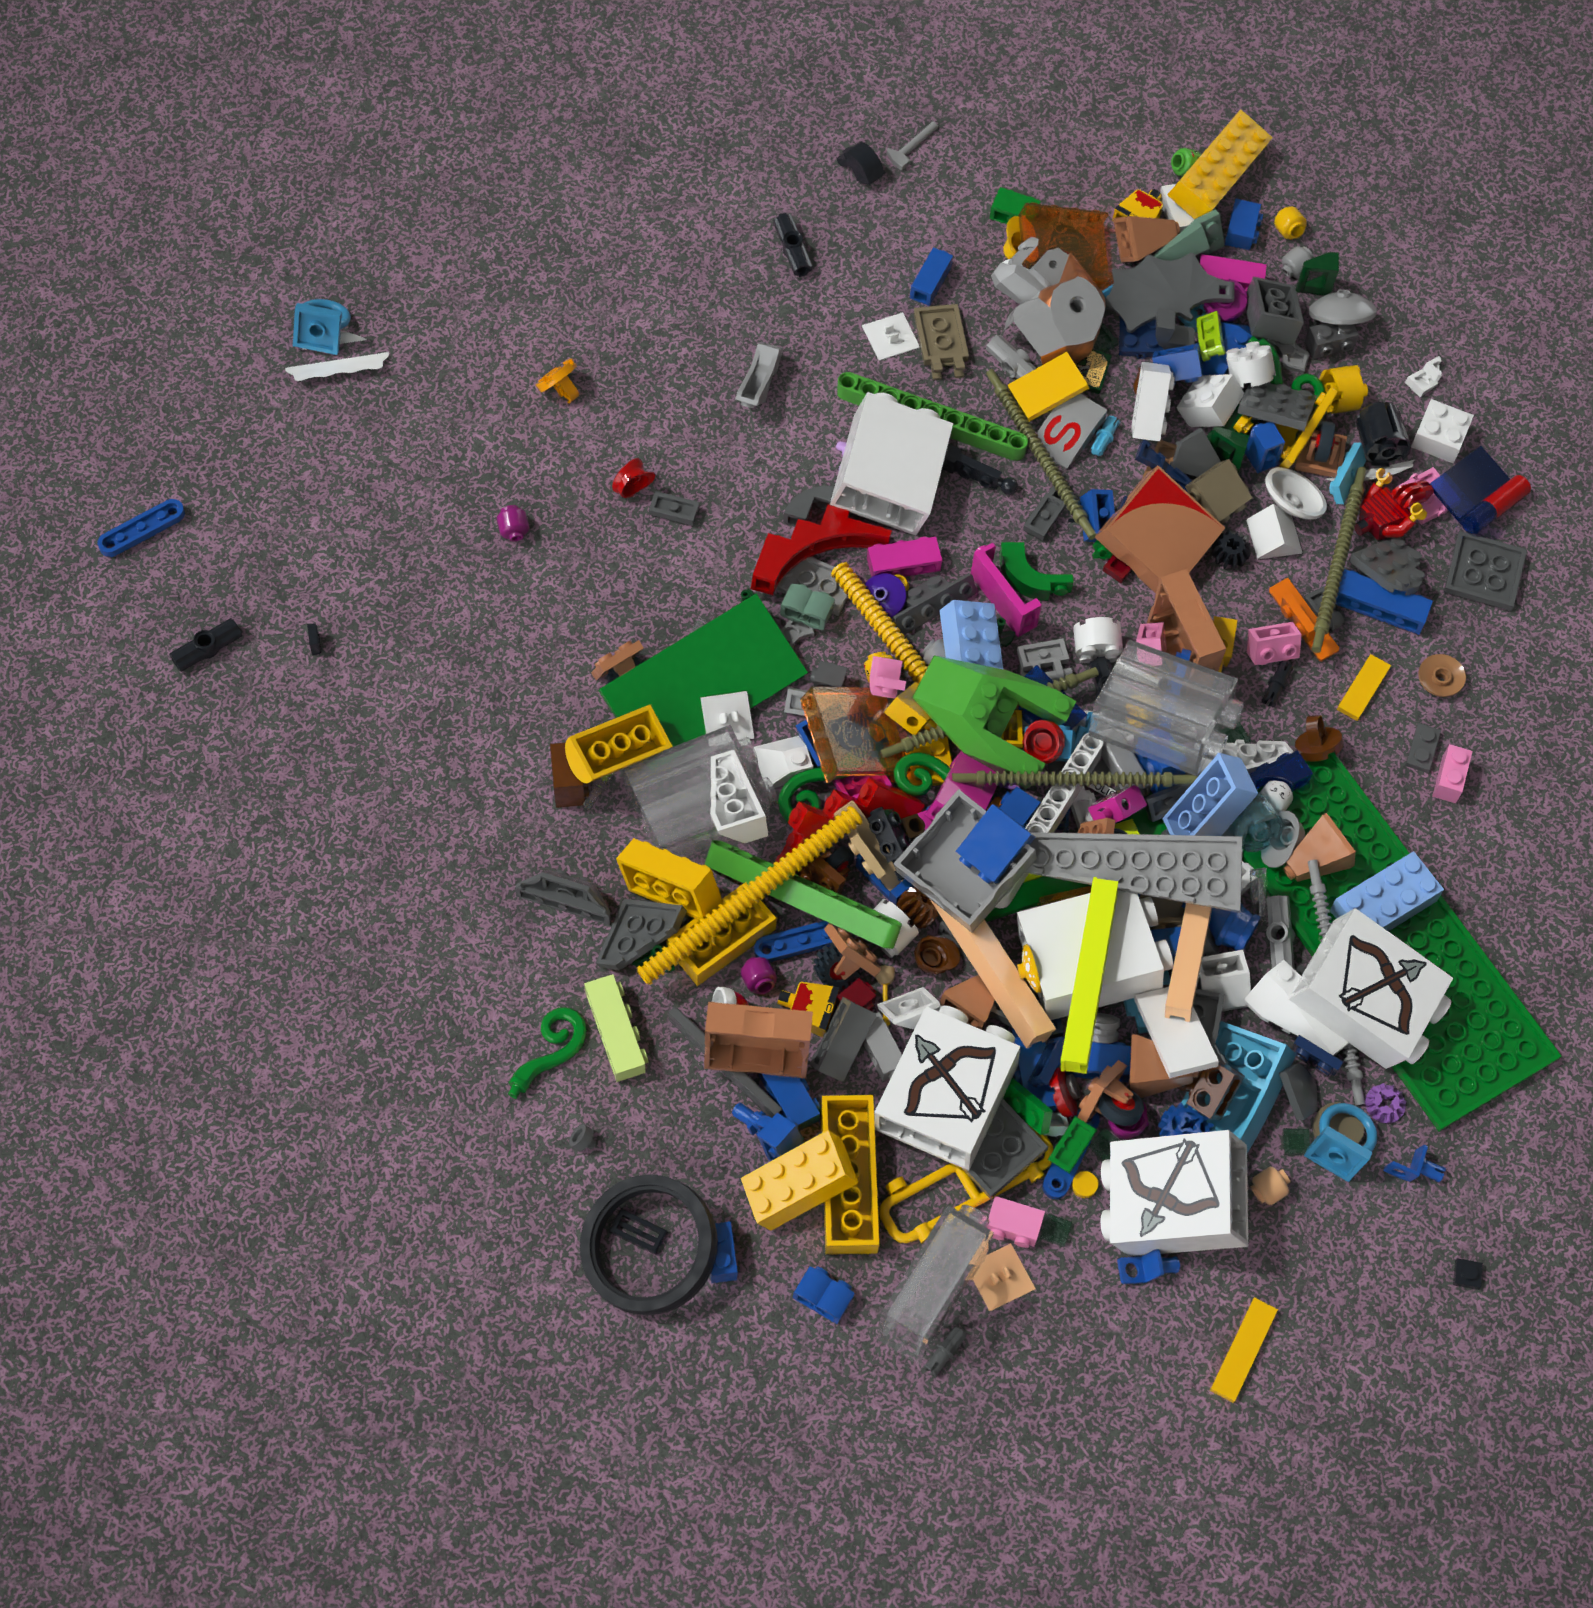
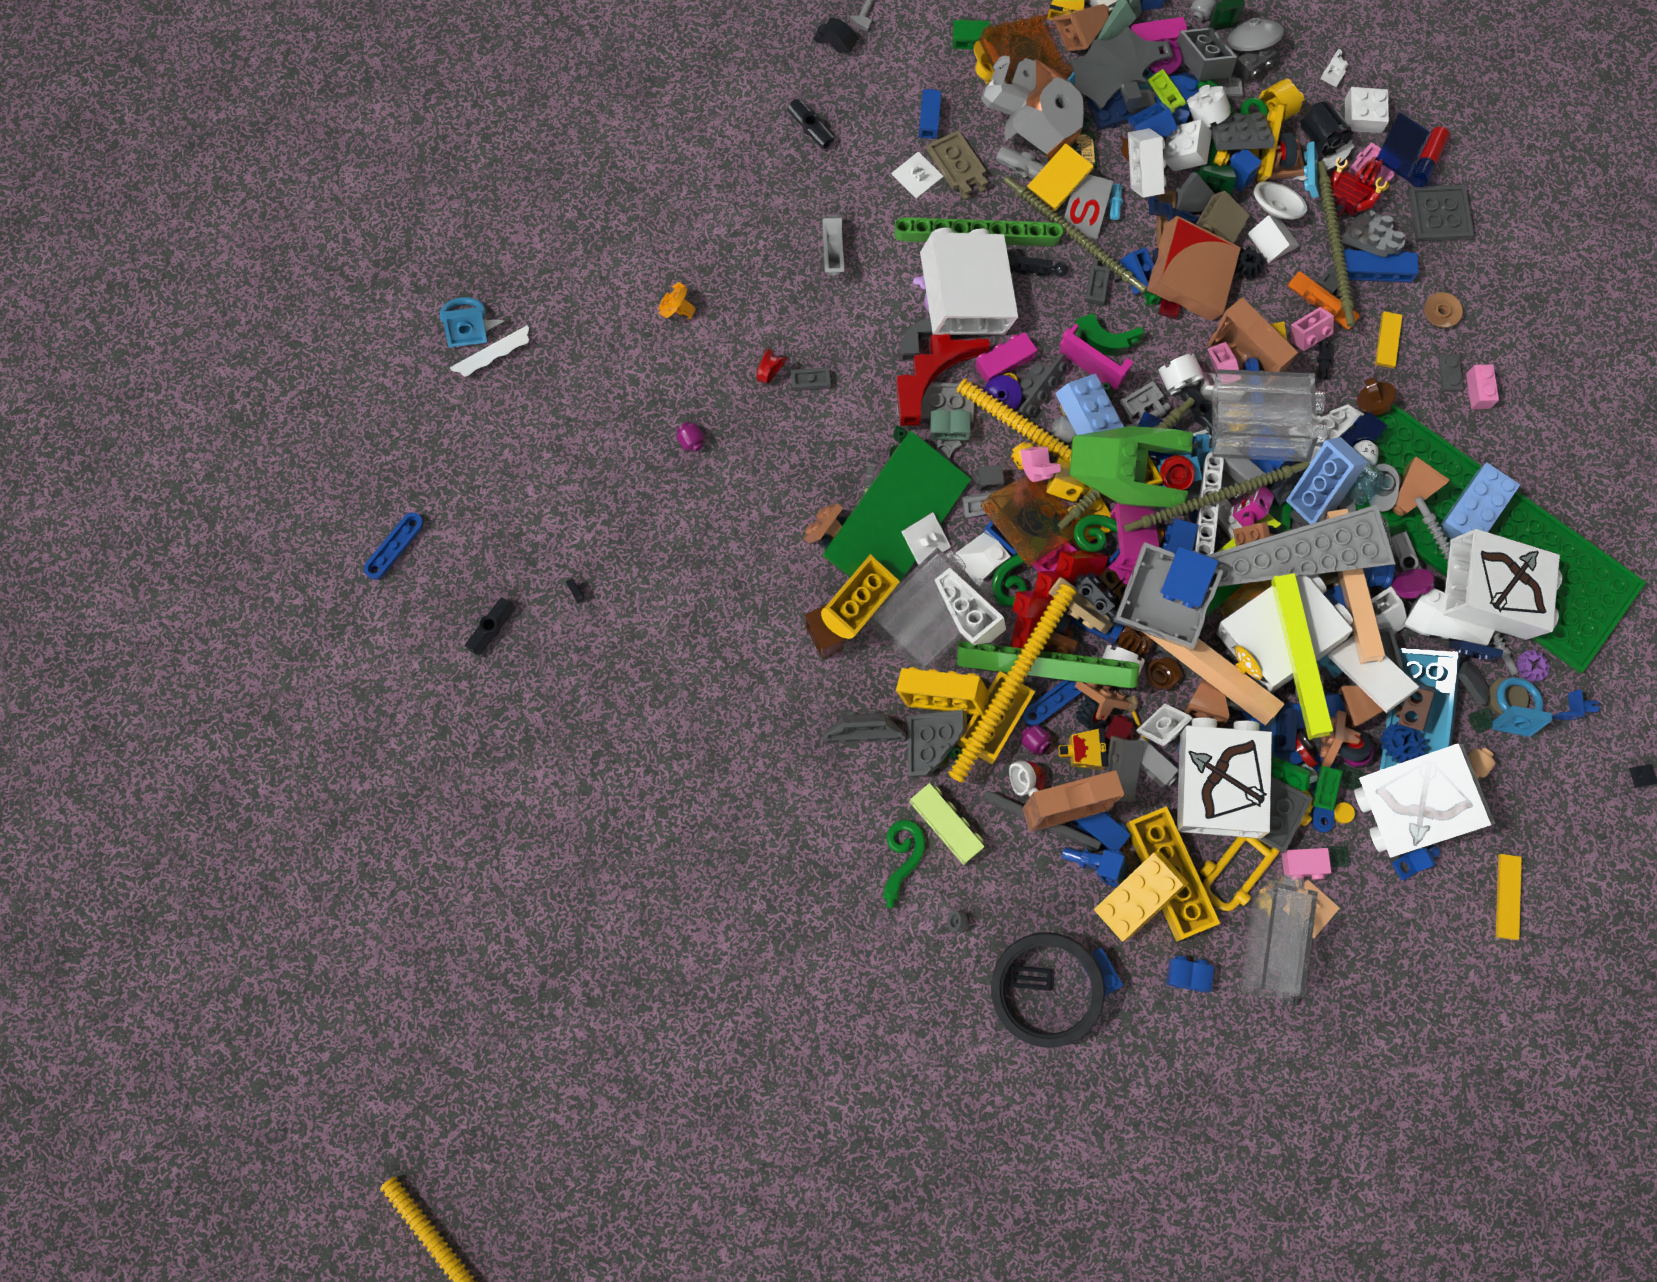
camera: 20 degrees left, 10 degrees up
(1269, 952) = (1413, 582): none -> magenta tile

